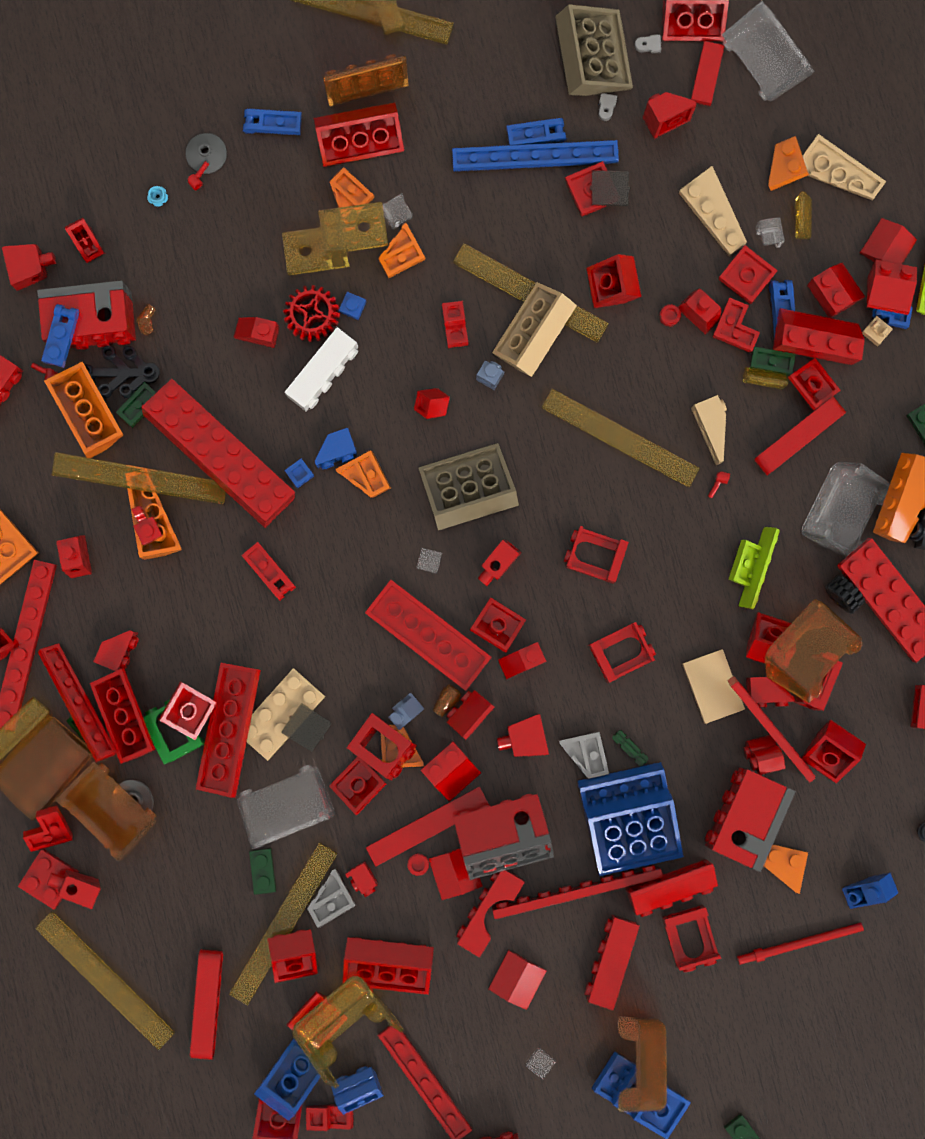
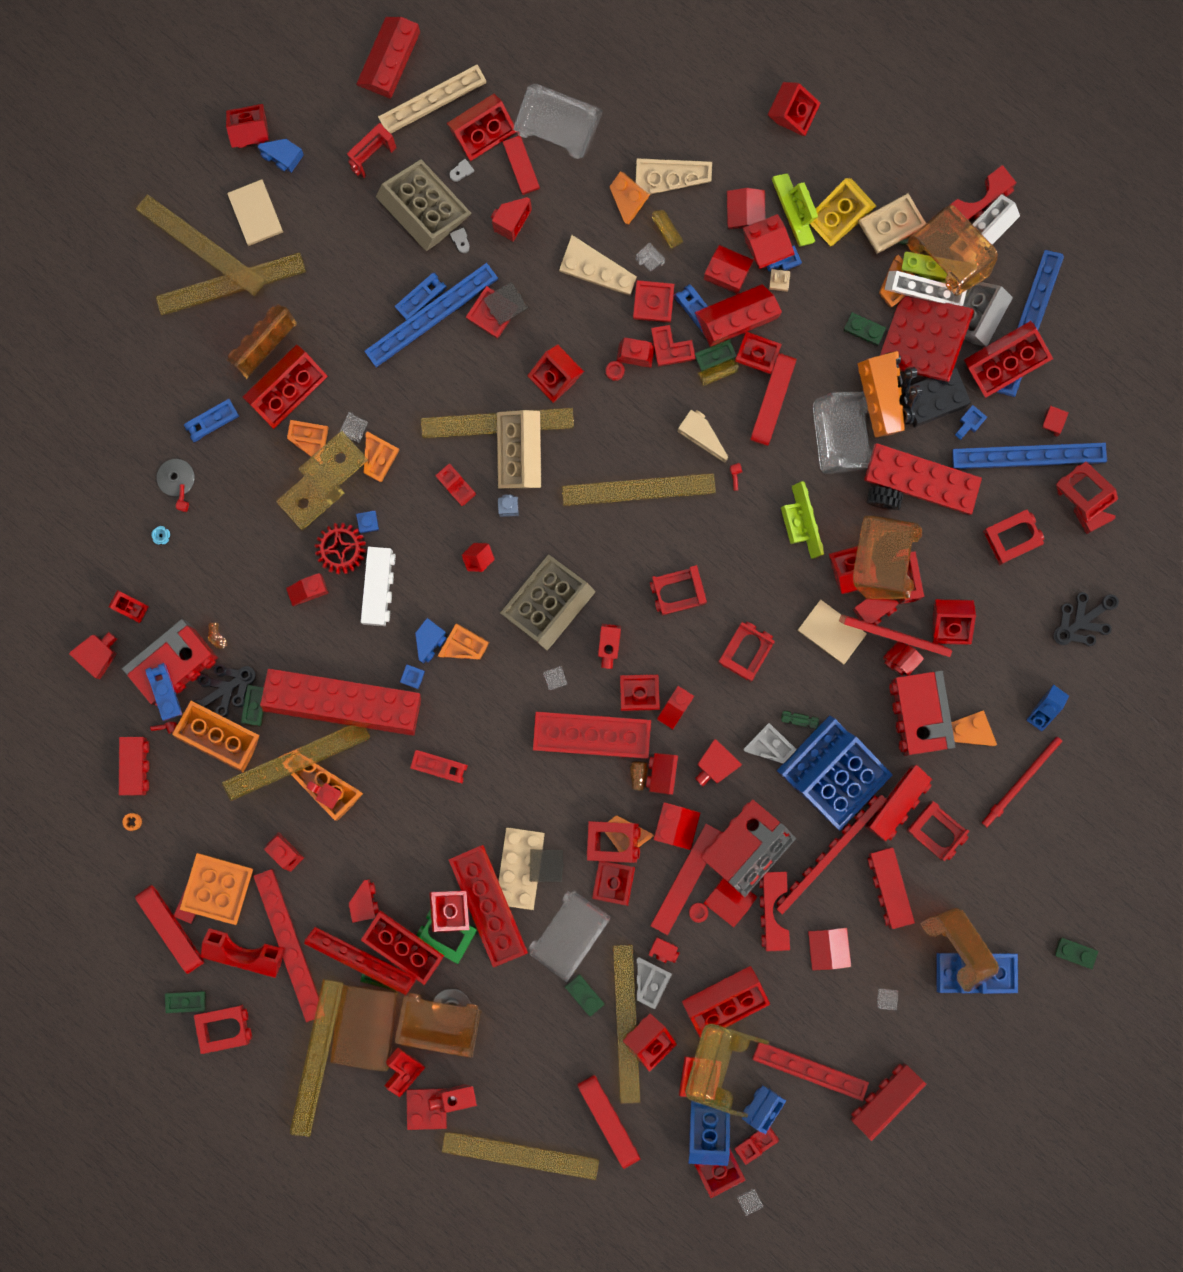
camera: 25 degrees left, 0 degrees up
(405, 711) = (613, 803): sand blue brick -> none

